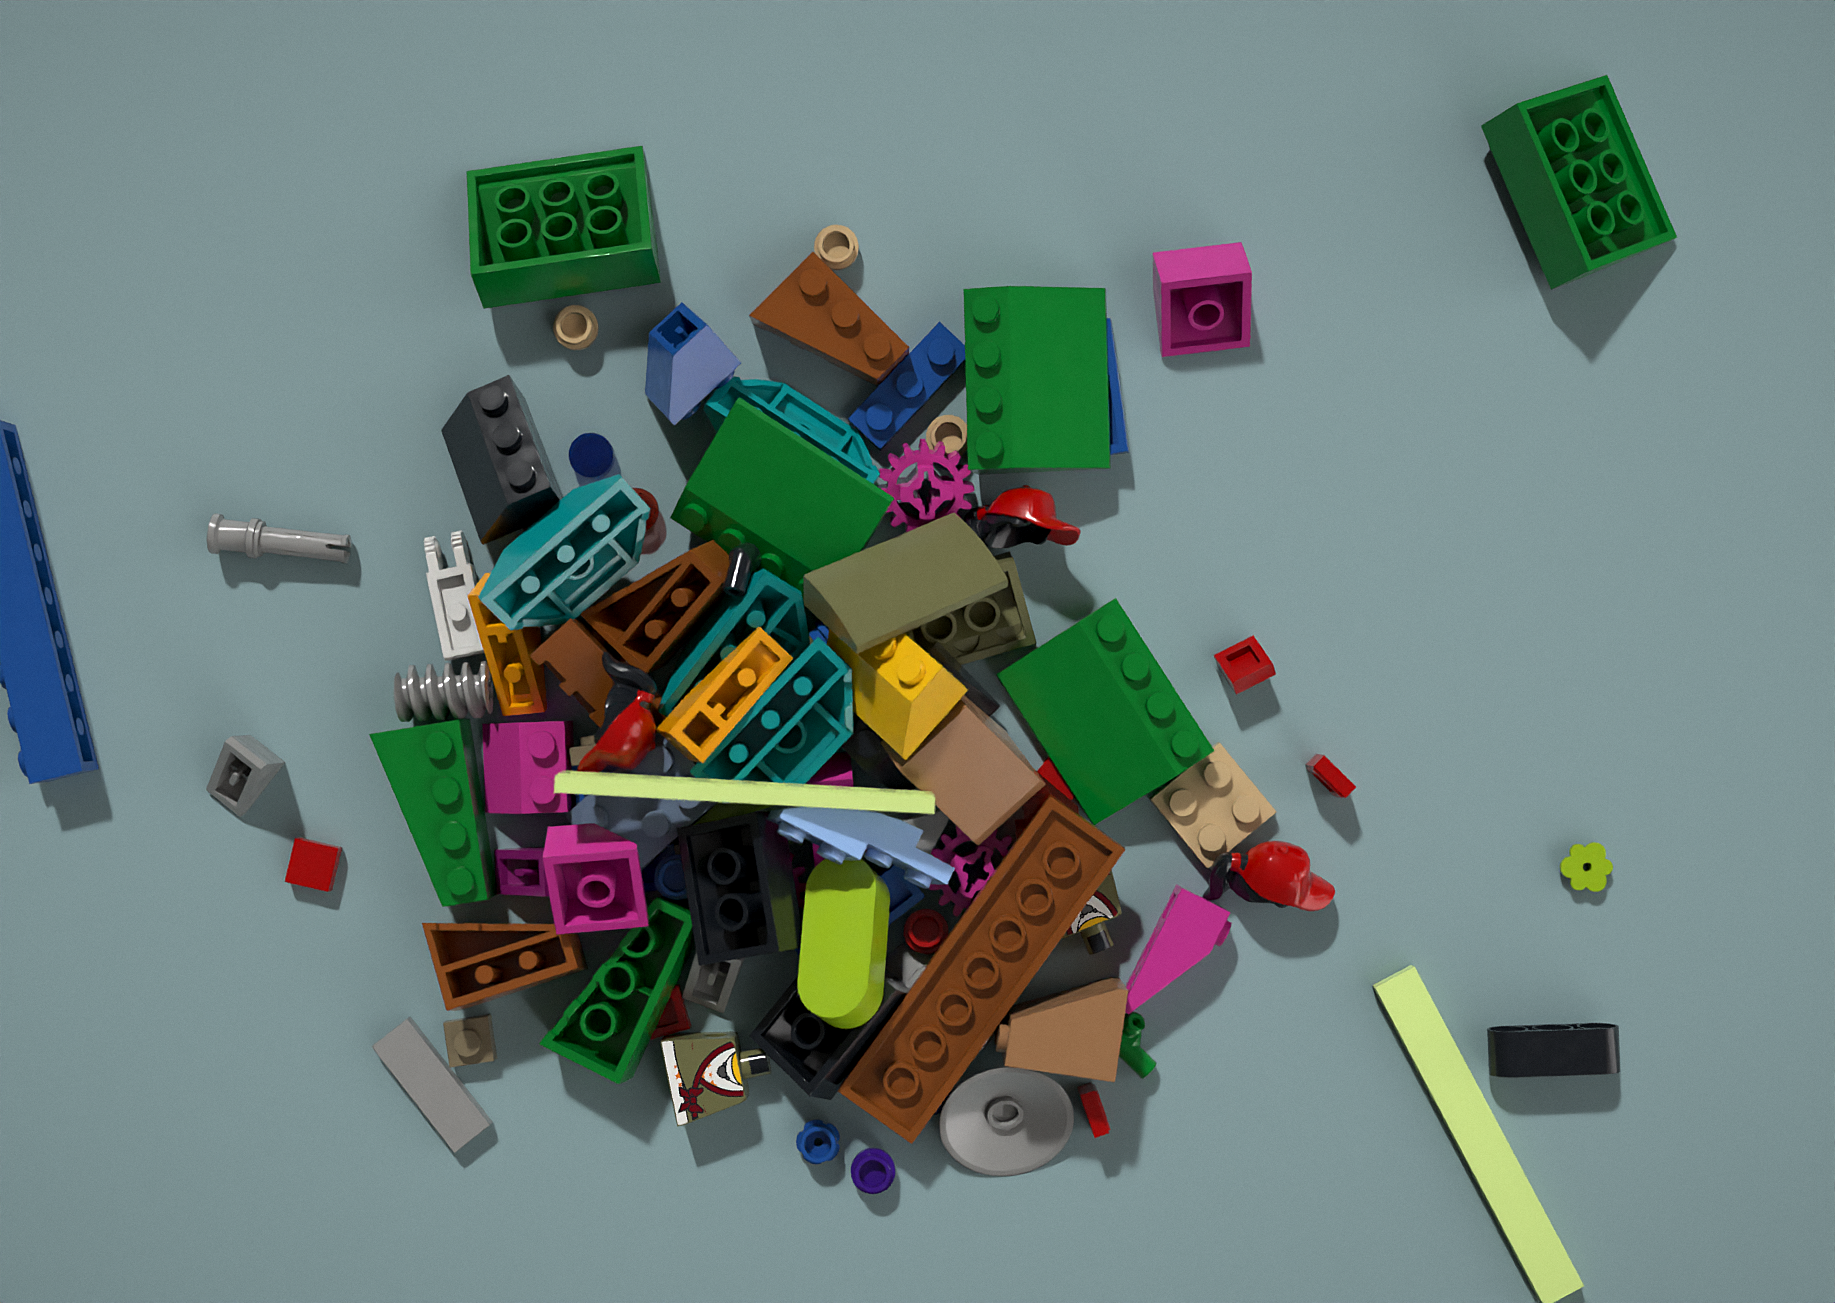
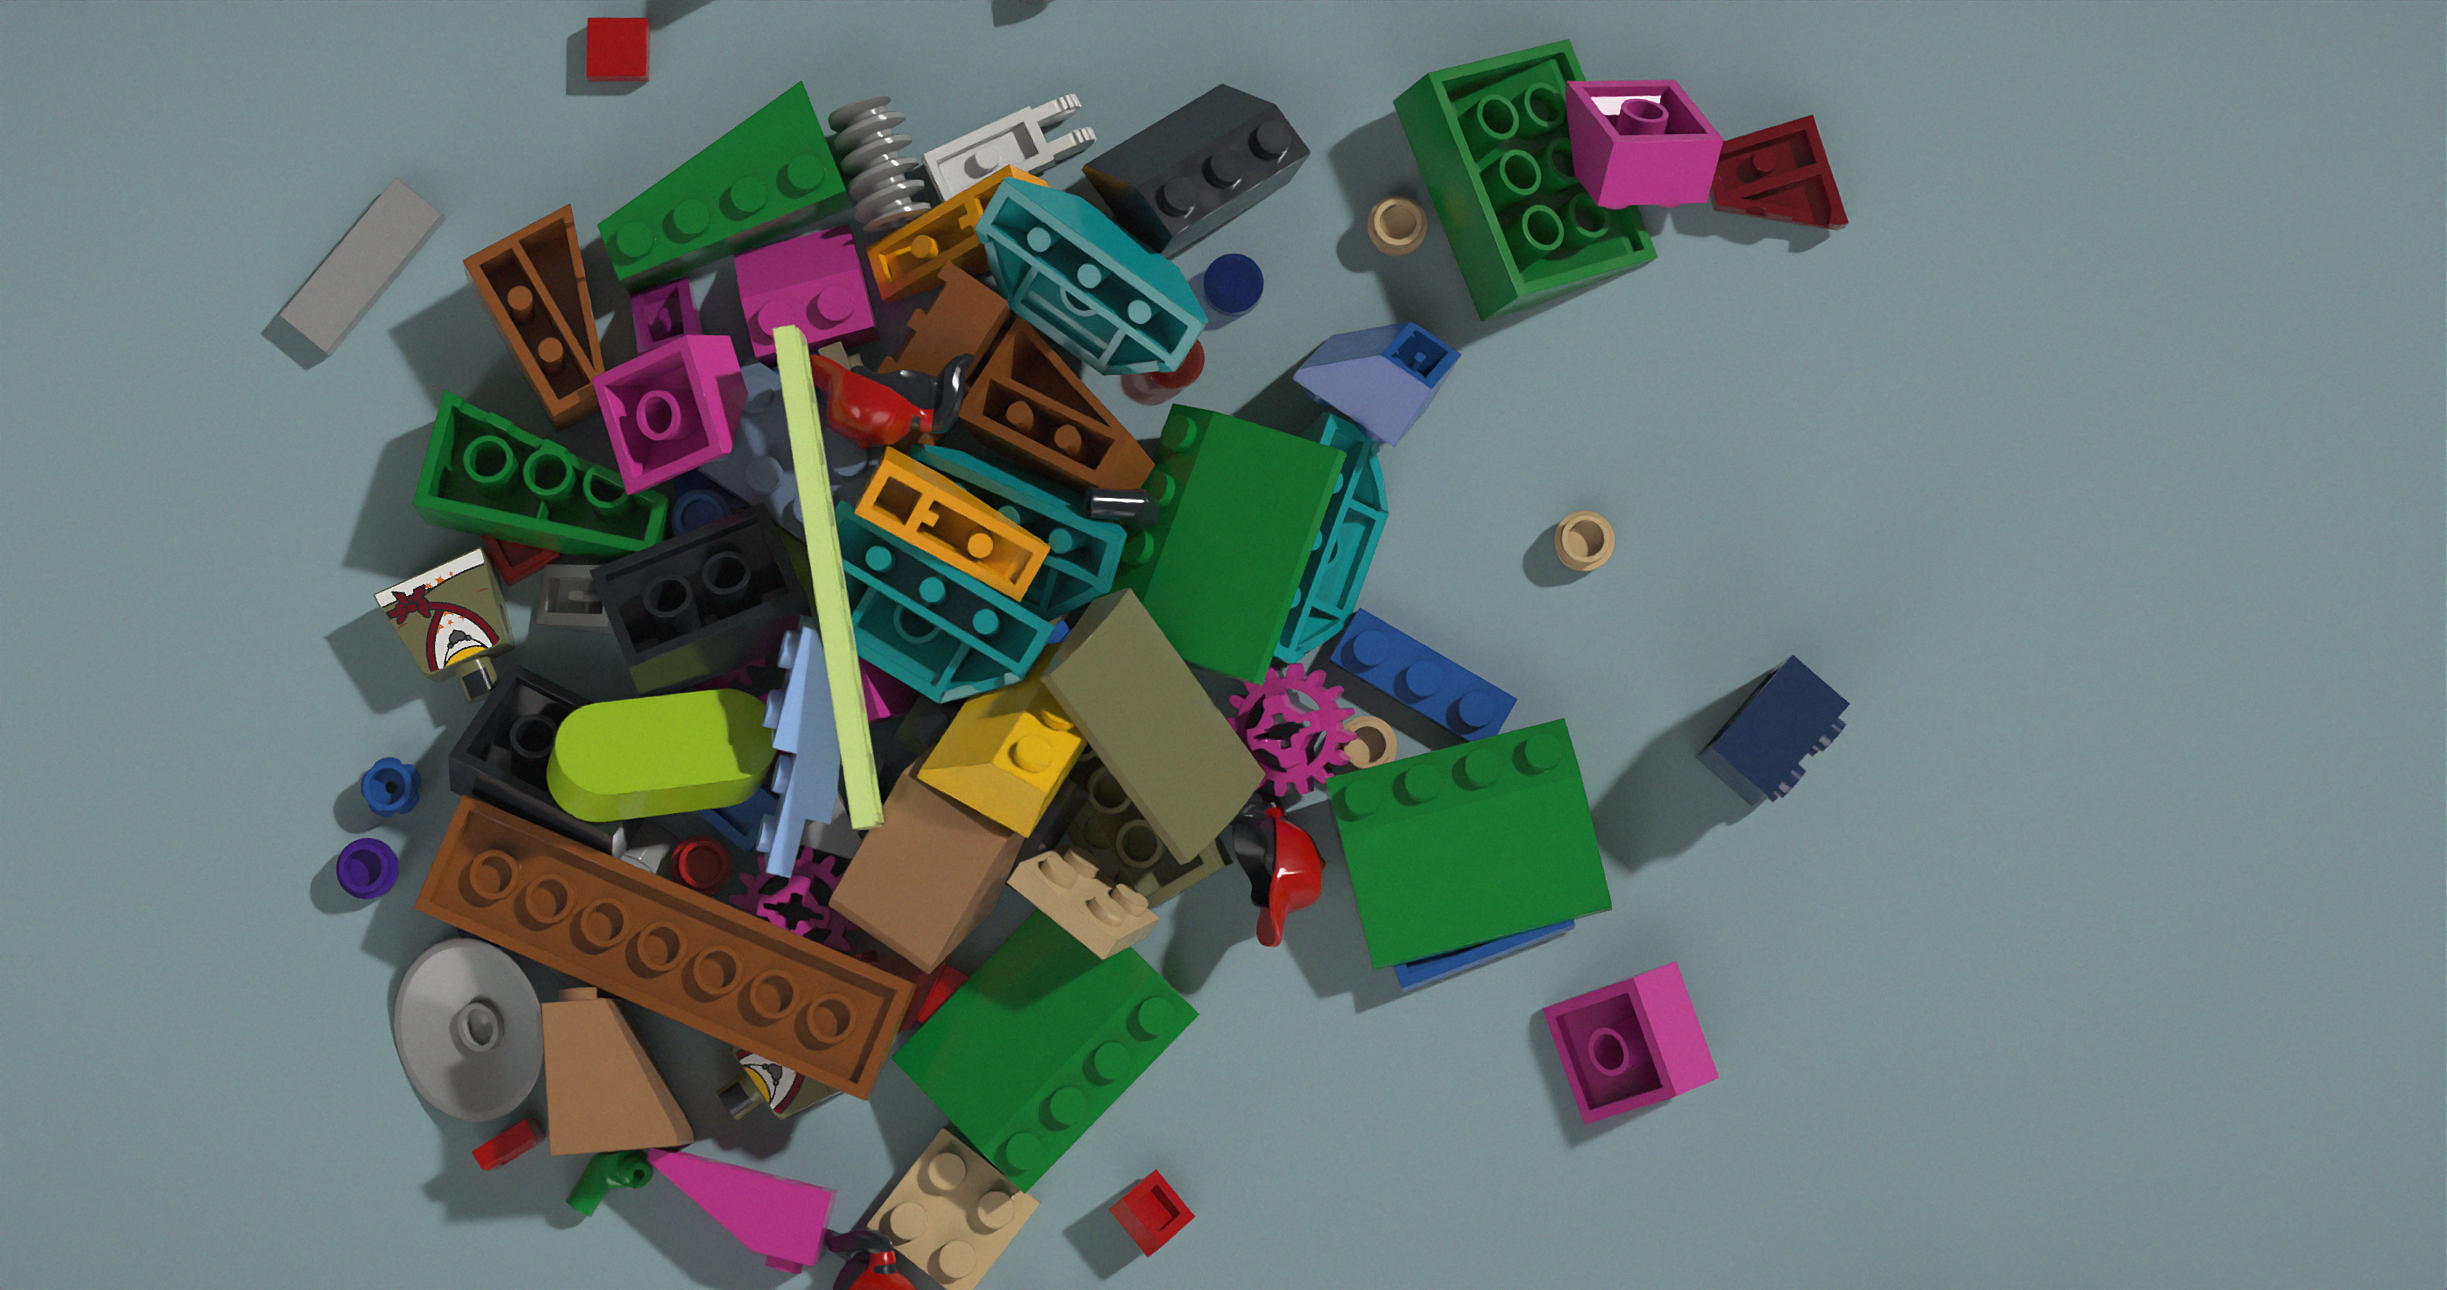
camera: 75 degrees right, 5 degrees down
(470, 1040) = (430, 302): dark tan plate -> none
(556, 135) = (1640, 143): none -> dark pink slope
(603, 45) = (1779, 177): none -> dark red wing
(831, 321) = (1481, 554): dark orange wedge -> none
(1007, 141) = (1773, 731): none -> dark blue brick
(1016, 661) = (1084, 899): none -> tan plate

